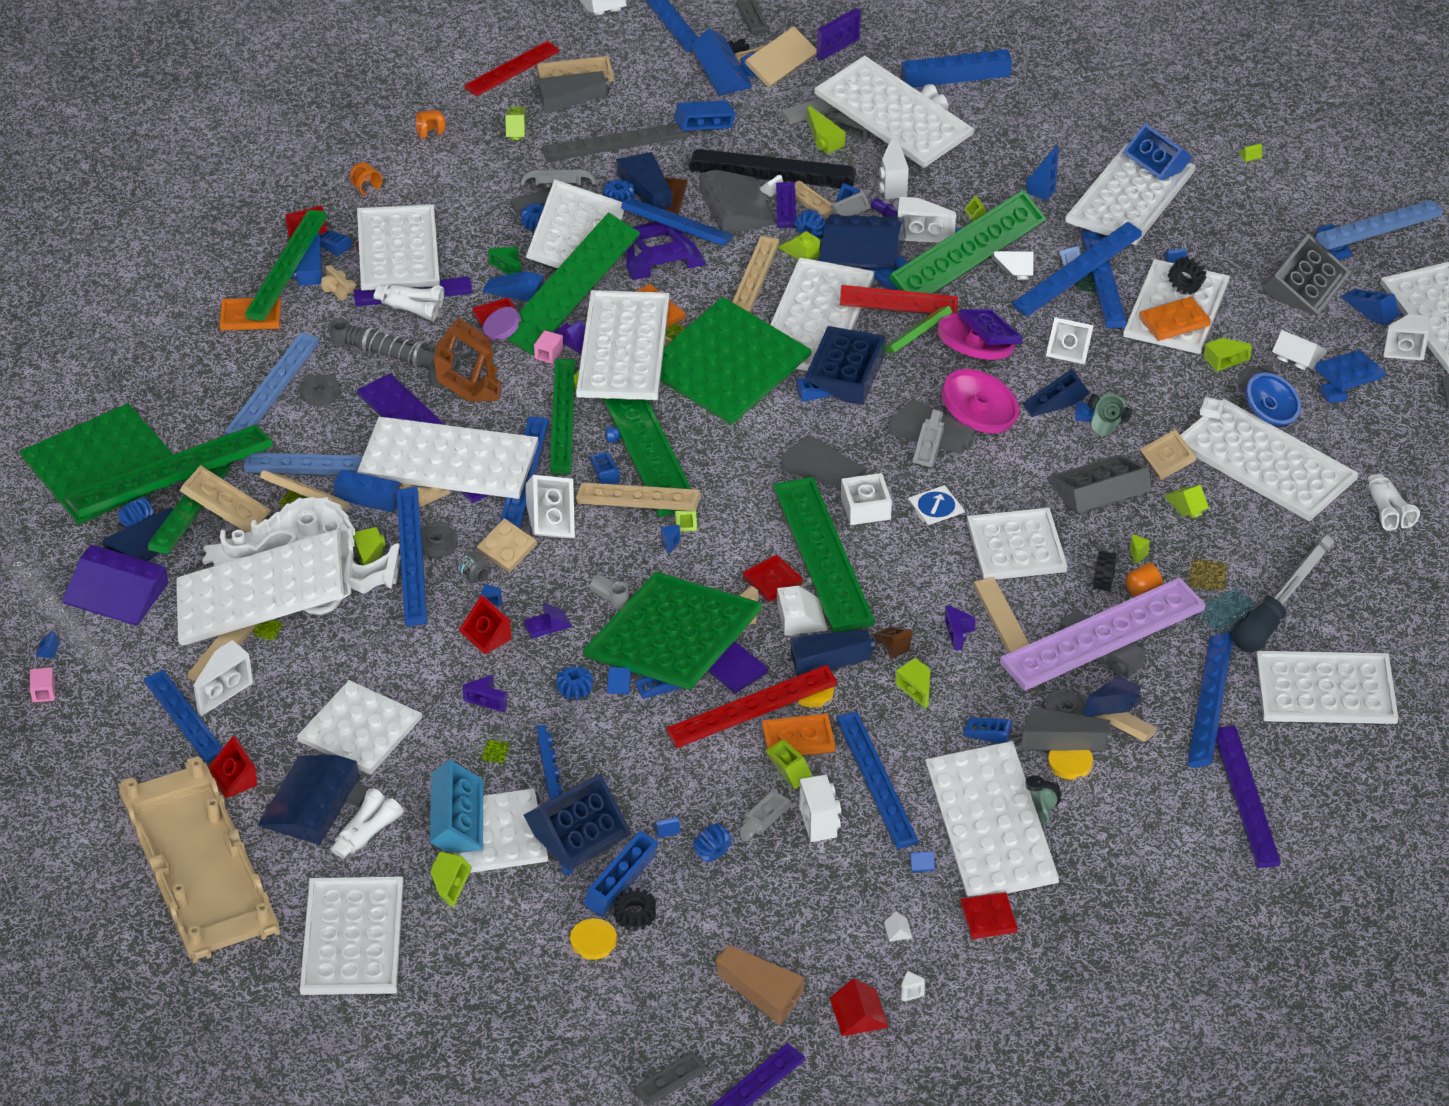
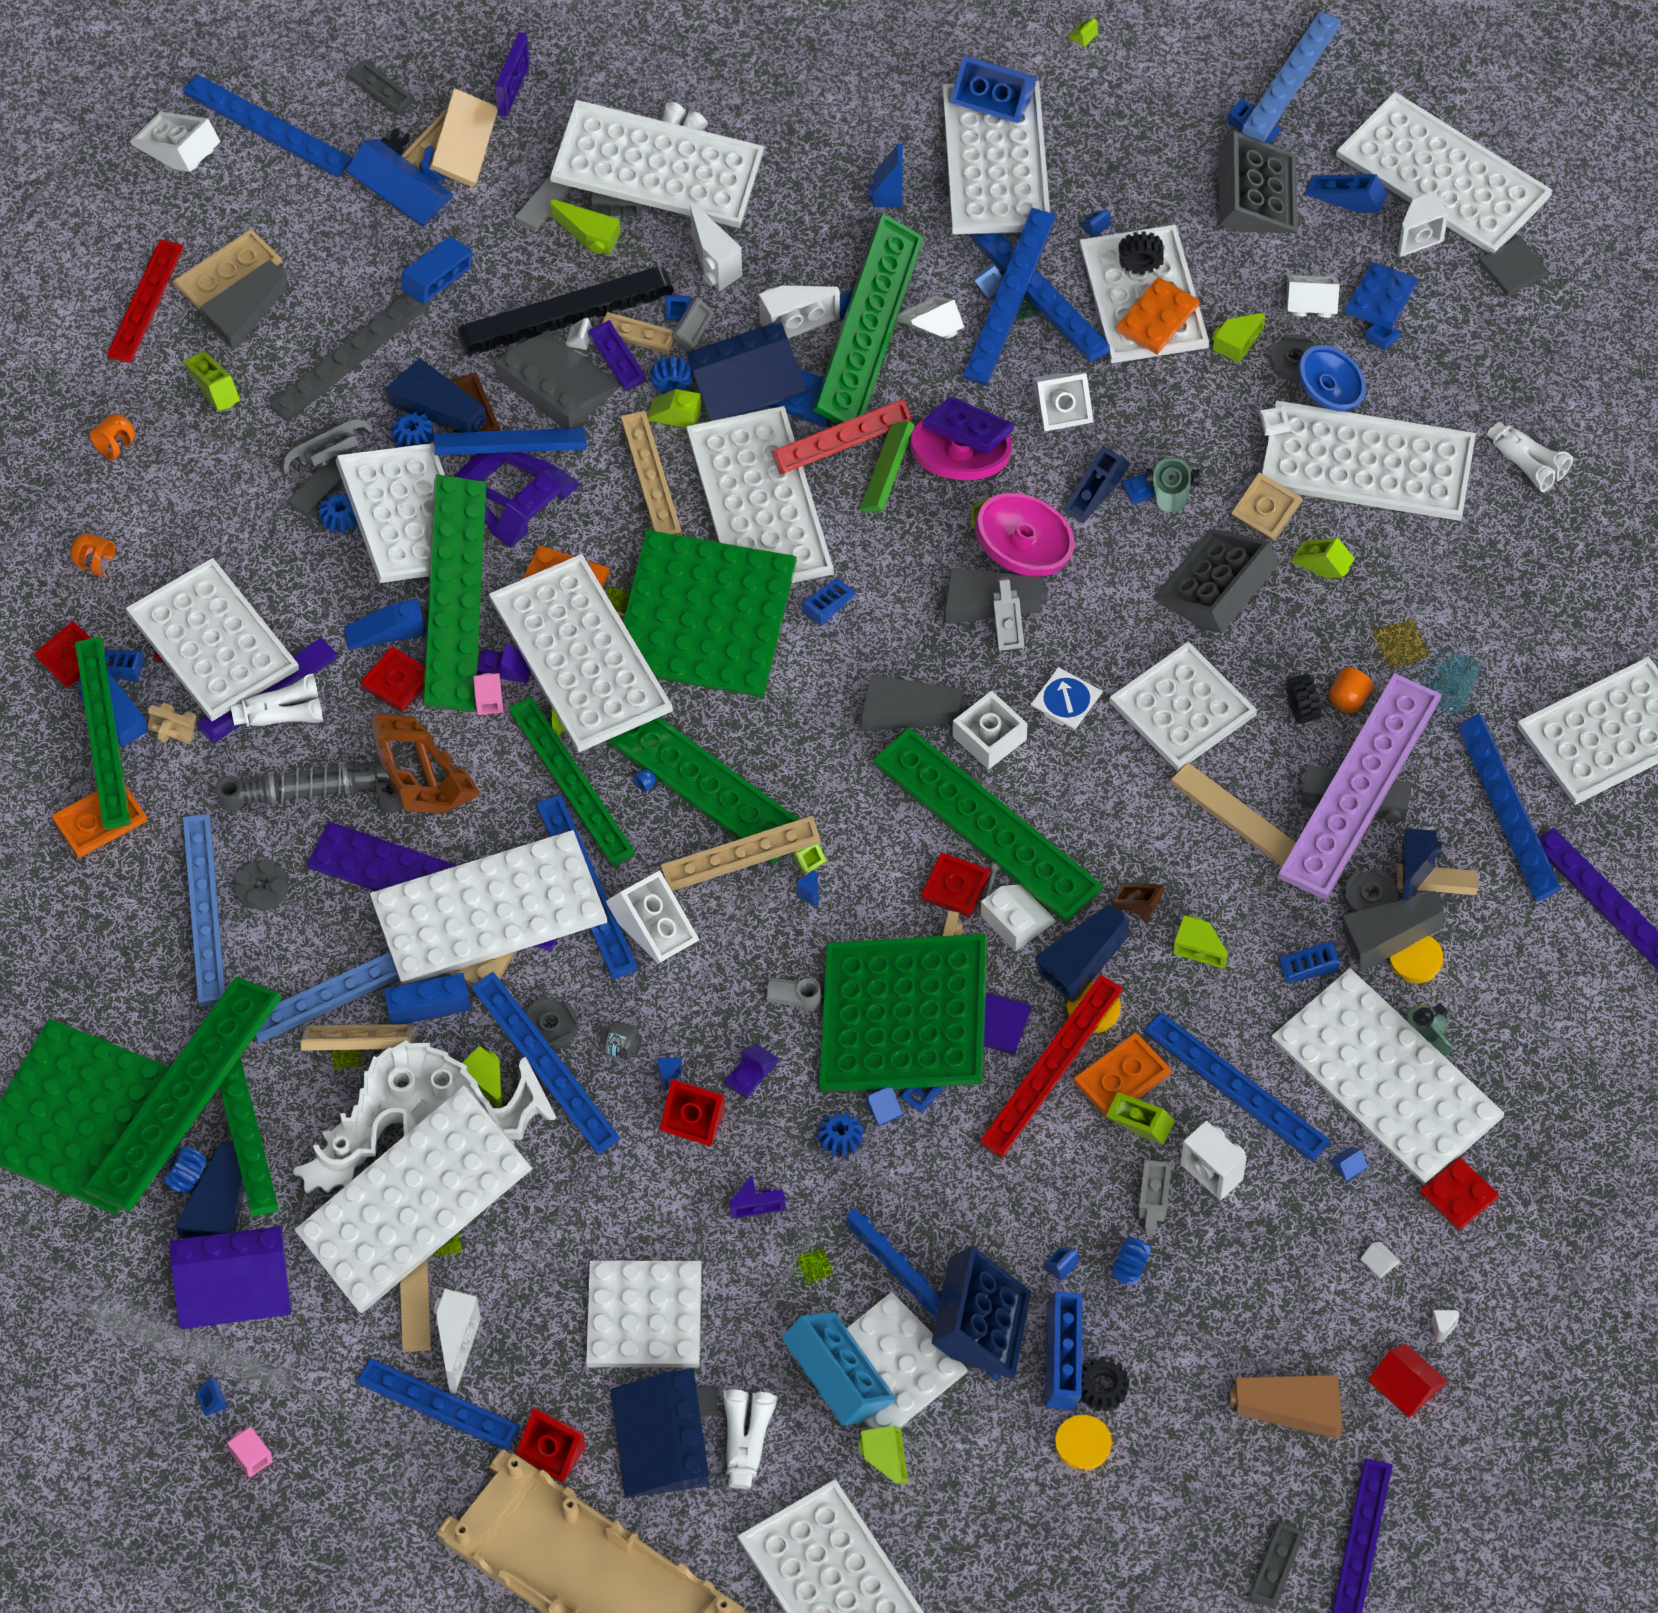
camera: 30 degrees left, 15 degrees up
(224, 499) = (281, 1100): tan plate -> none
(501, 323) = (419, 692): medium lavender tile -> none
(505, 259) = (346, 595): green slope -> none
(506, 545) = (637, 992): tan plate -> none
(609, 472) = (679, 840): blue slope -> none
(847, 363) = (845, 553): dark blue slope -> none
(885, 209) = (735, 308): dark purple axle -> none
(957, 68) = (679, 62): blue brick -> none
(958, 625) = (1190, 845): dark purple slope -> none
(975, 208) = (834, 259): lime slope -> none
(1139, 548) = (1312, 648): lime slope -> none
(1265, 617) = (1503, 682): black piece -> none

